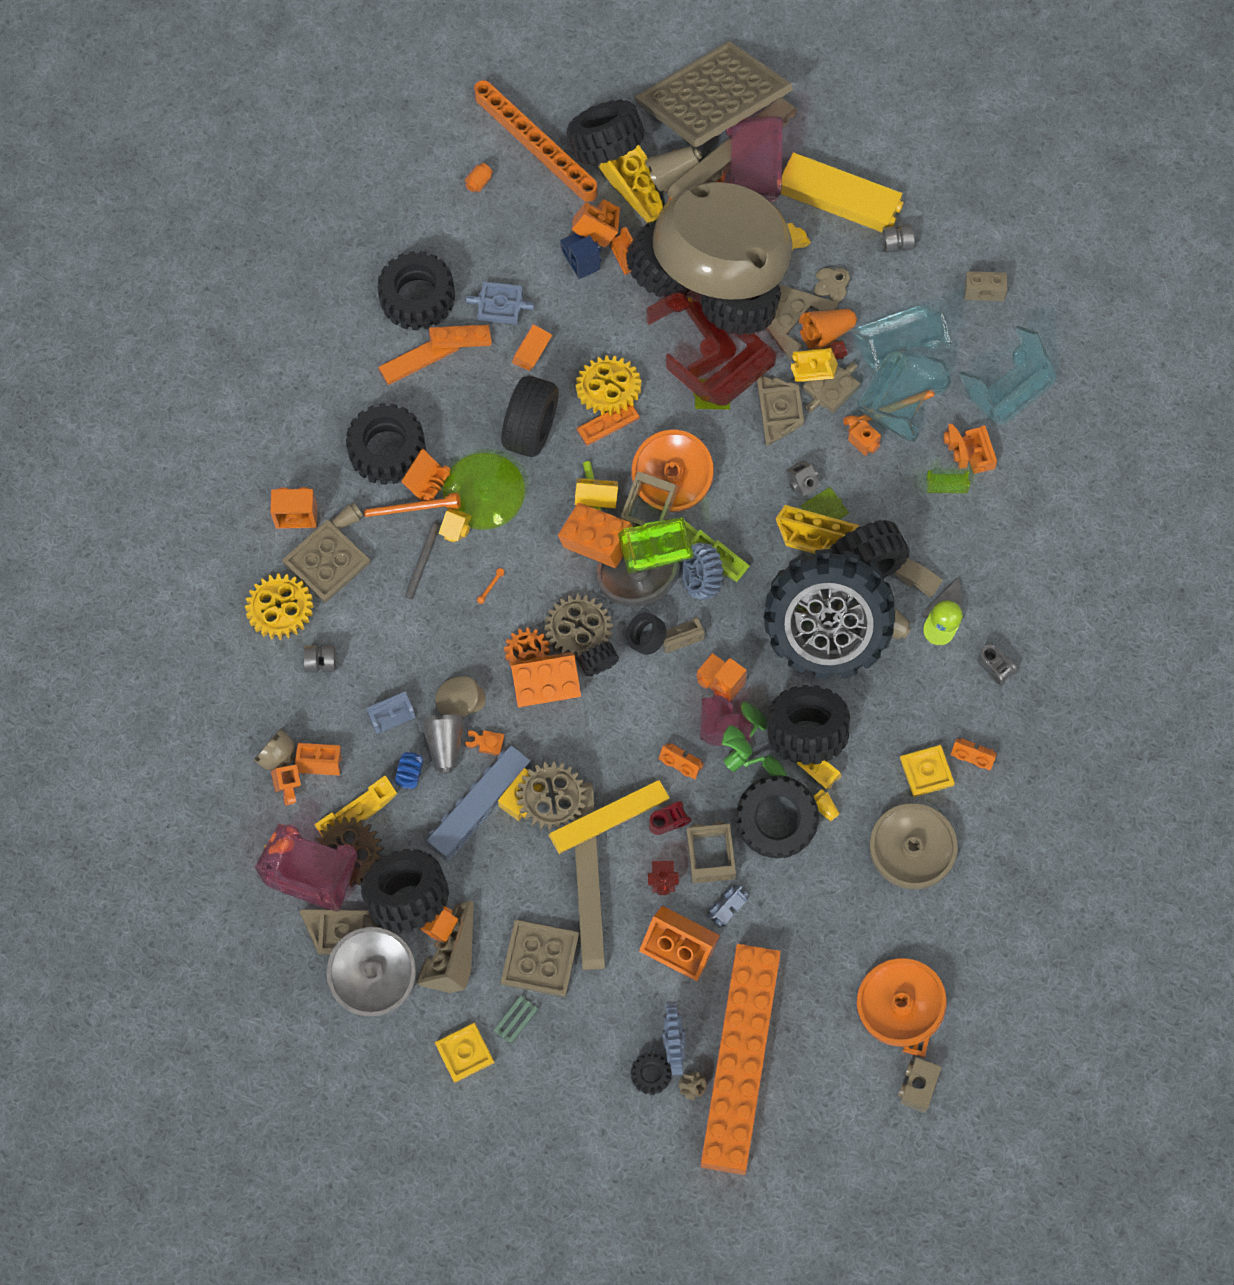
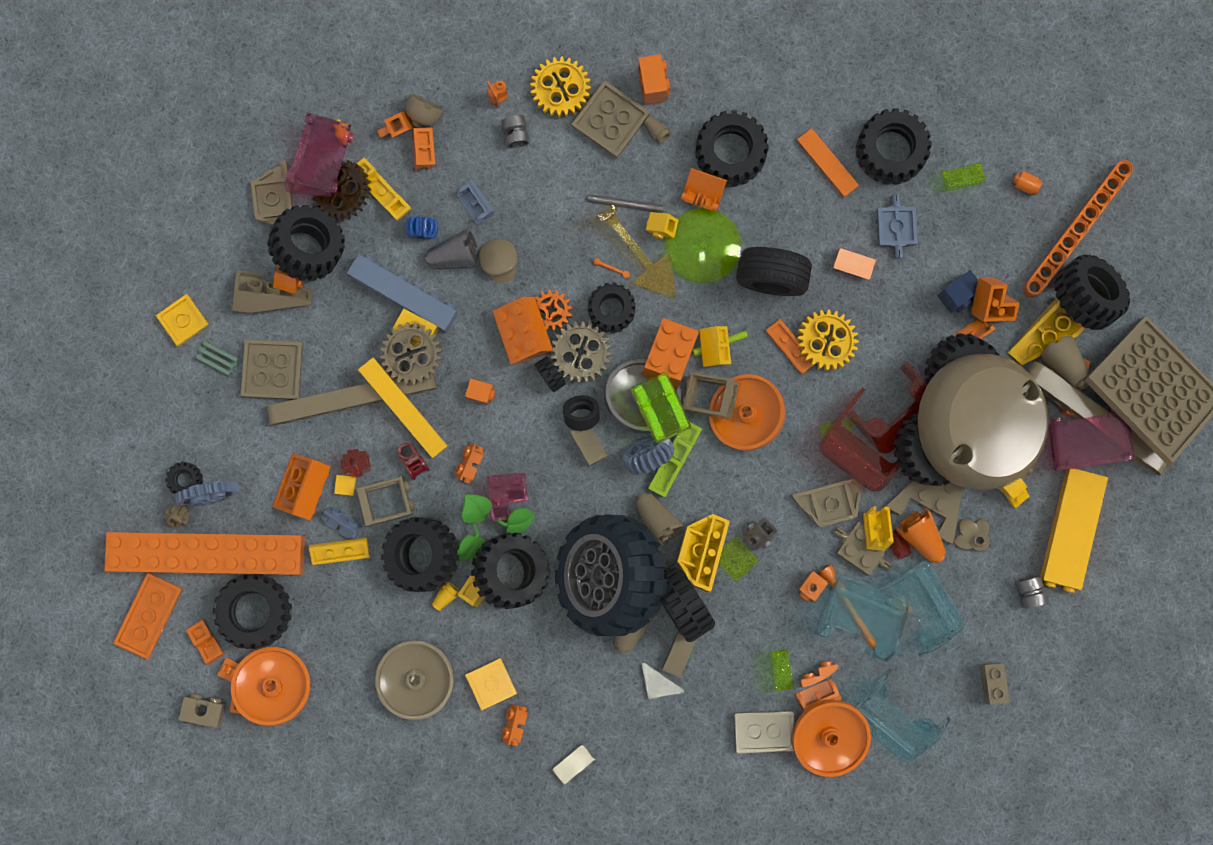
camera: 80 degrees right, 15 degrees up
(273, 670) = (497, 92): none -> orange hinge
(371, 971) = (237, 229): flat silver dish -> none
(451, 501) = (682, 217): orange piece -> none
(459, 234) = (963, 177): none -> clear neon green hinge
(460, 336) = (854, 195): orange plate -> none
(489, 742) = (462, 292): orange plate -> none
(508, 539) = (657, 276): none -> clear yellow piece
(535, 572) = (611, 291): none -> black tyre
(604, 736) = (480, 392): none -> orange brick
(685, 896) = (345, 485): none -> yellow tile
(722, 677) = (550, 487): orange brick -> none
(759, 911) = (339, 551): none -> yellow tile
(760, 579) = (658, 518): none -> dark tan cone
(802, 1137) = (147, 616): none -> orange tile
(814, 1040) = (226, 611): none -> black tyre
(841, 1074) = (205, 642): none -> orange slope
(877, 1051) = (227, 669): none -> orange tile
(942, 622) = (637, 681): lime cap -> none
(1000, 667) = (601, 737): flat silver piece -> none
(1009, 507) = (764, 731): none -> plate
(1022, 700) = (573, 764): none -> tile
(1023, 442) = (831, 738): none -> orange dish

